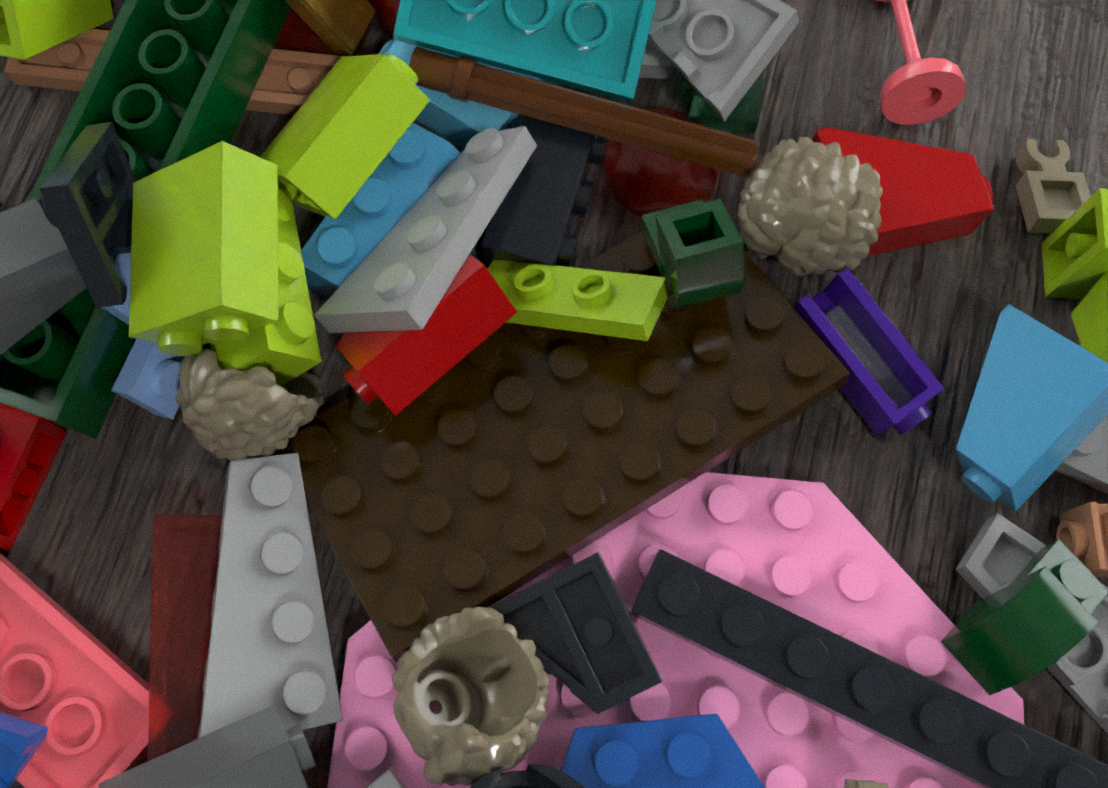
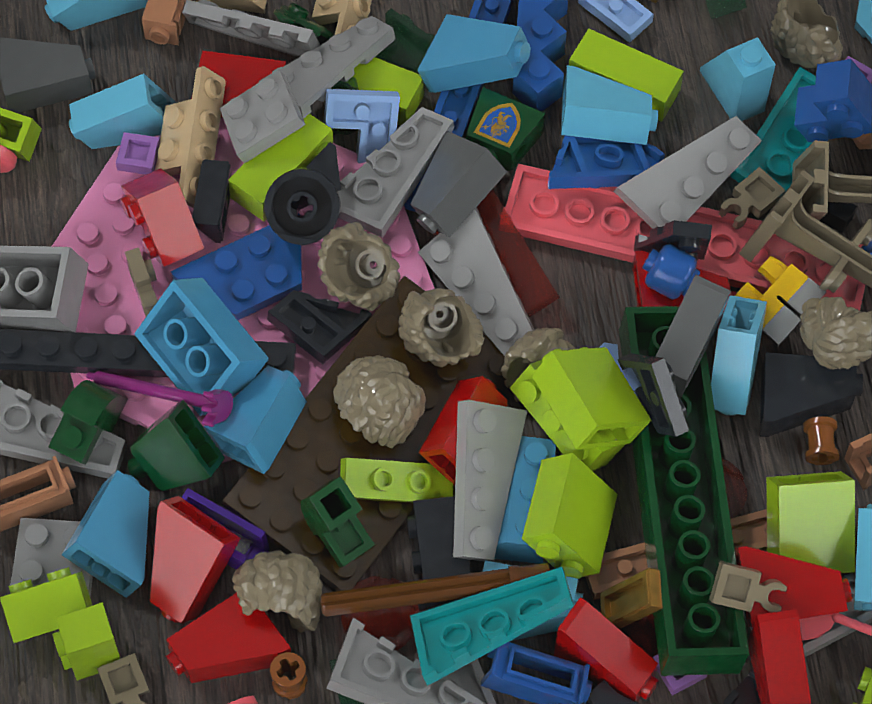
camera: 160 degrees right, 10 degrees down
(383, 493) = (444, 336): none -> dark tan hair
(543, 419) = (379, 399): none -> dark tan hair
(753, 472) = (260, 419): none -> dark azure slope
(809, 654) = (199, 340): none -> dark azure slope
(824, 106) = (295, 666): none -> dark orange bush
(828, 505) = (216, 403): none -> magenta piece
(911, 513) = (175, 450): none -> dark green torso
(930, 308) = (187, 559): none -> slope

